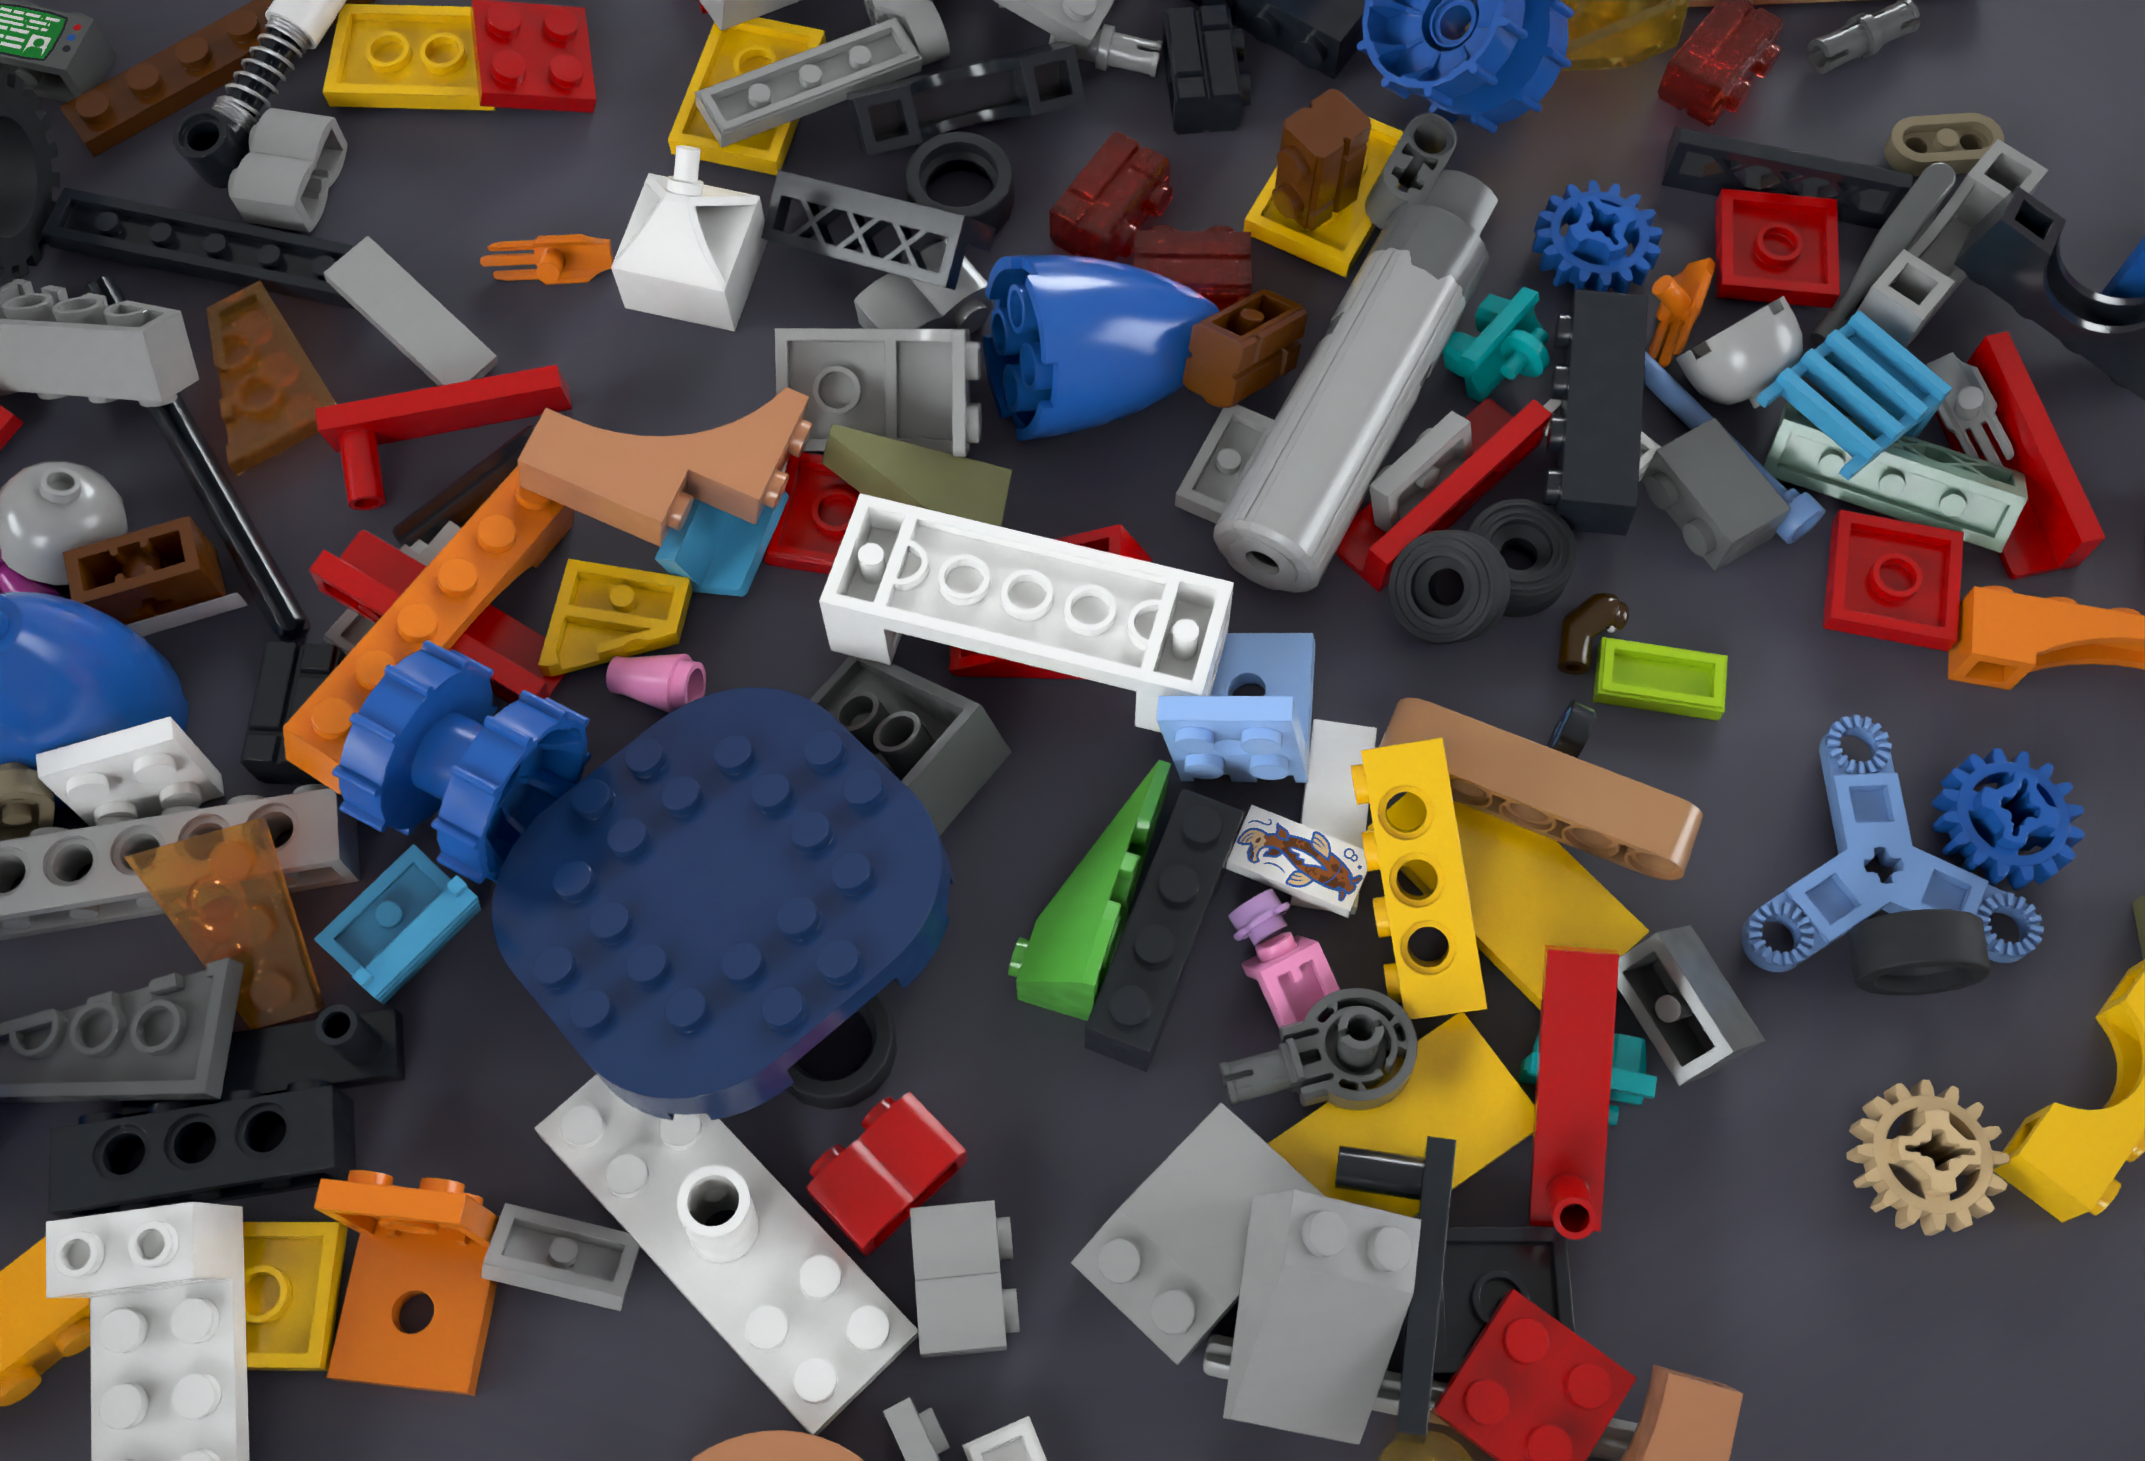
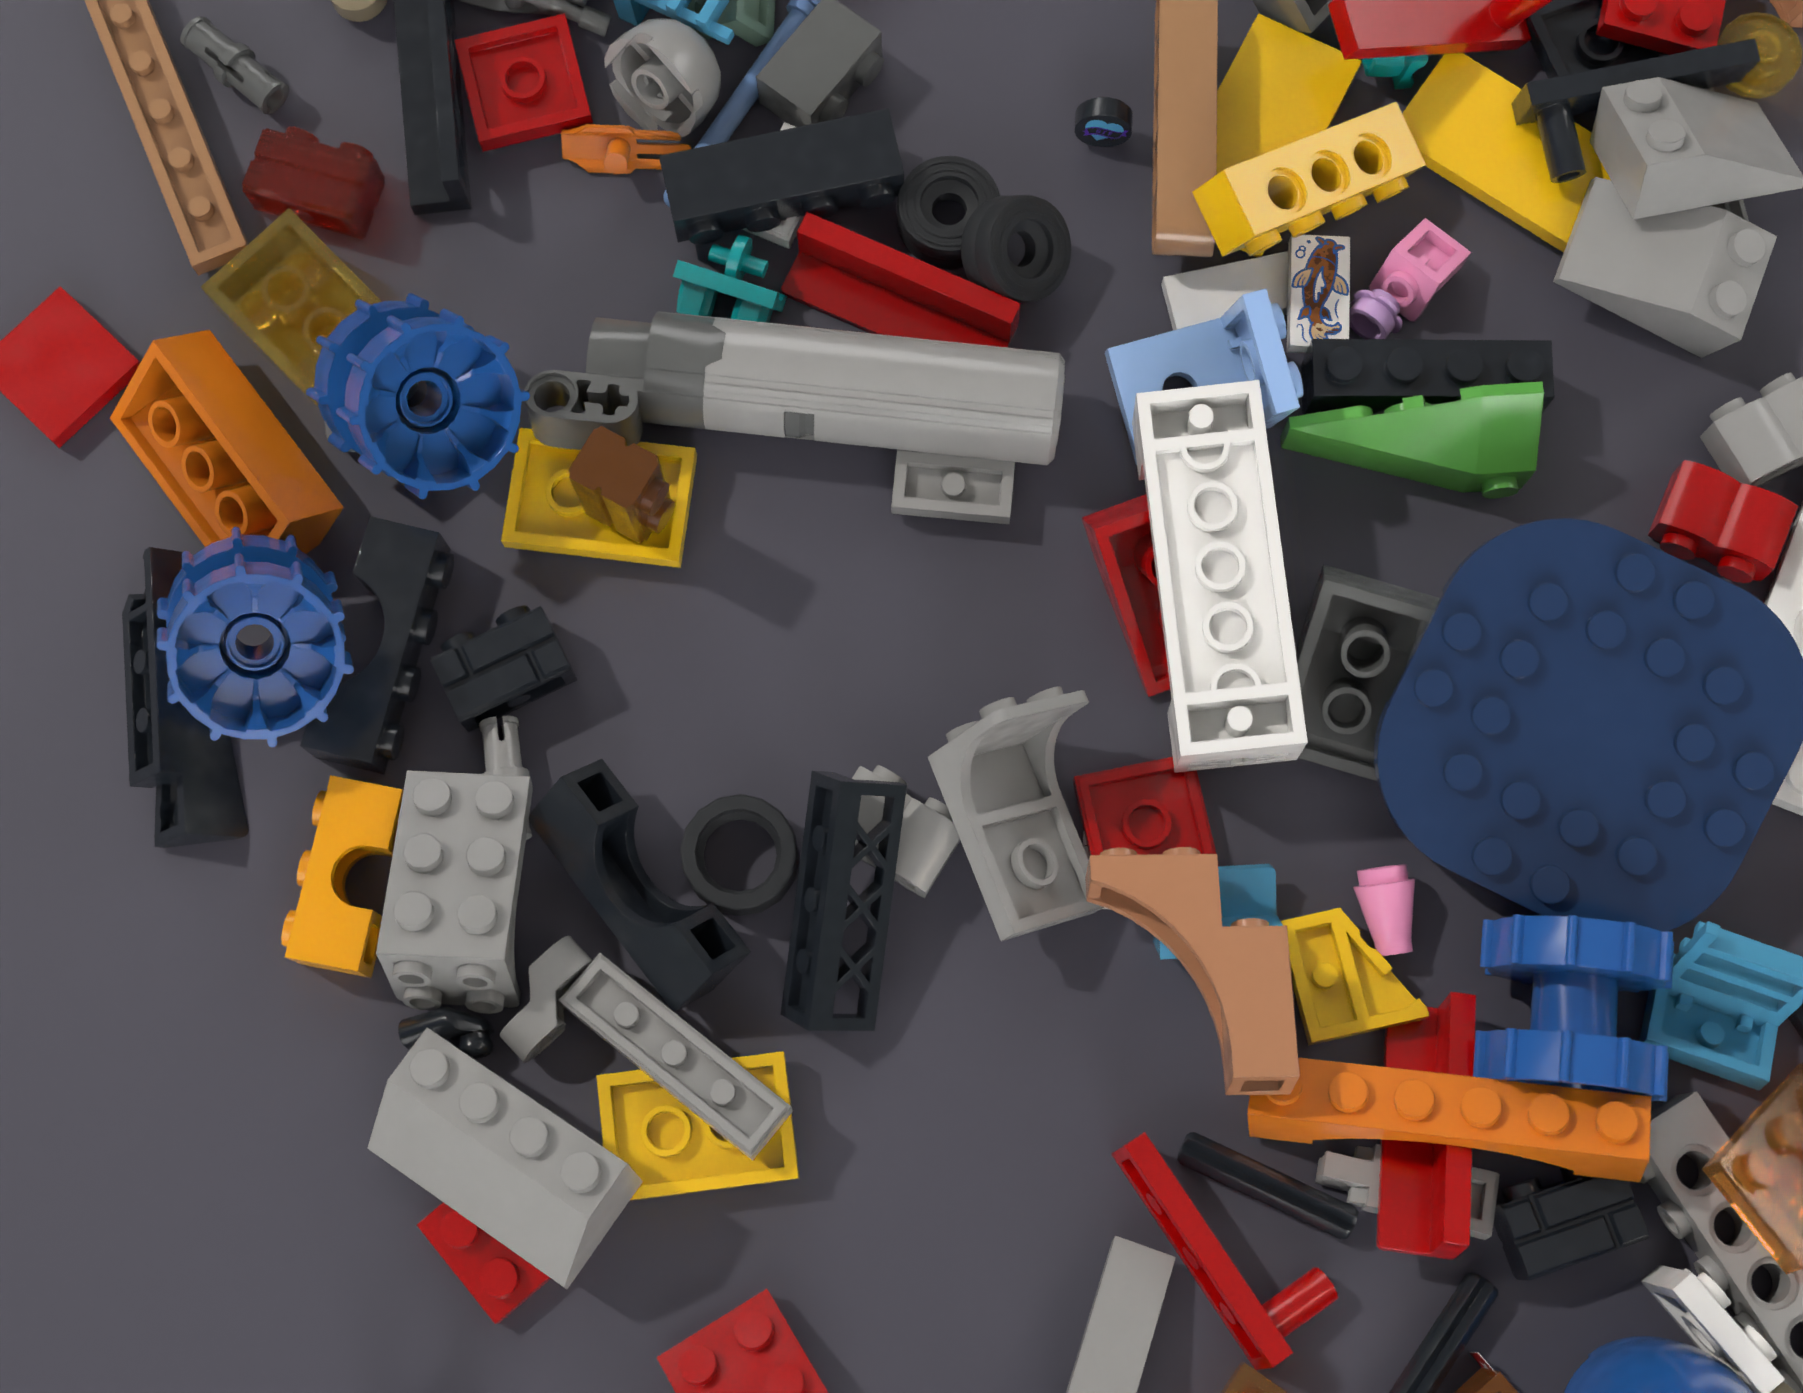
camera: 110 degrees left, 10 degrees up
(557, 257) = (981, 1238): orange piece -> none
(690, 248) = (926, 1086): white piece -> none
(918, 475) = (1106, 730): olive slope -> none
(1084, 341) = (894, 642): blue cylinder -> none
(1111, 200) = (702, 696): clear red brick -> none
(1207, 261) = (757, 592): clear red brick -> none
(1244, 347) = (843, 497): reddish brown brick -> none
(1331, 1063) = (1476, 219): dark grey pin -> none
(1420, 470) = (880, 303): light grey plate -> none
(1578, 627) = (988, 142): dark brown arm -> none
(1597, 239) = (566, 258): blue gear -> none
(1660, 678) = (1012, 72): lime tile -> none

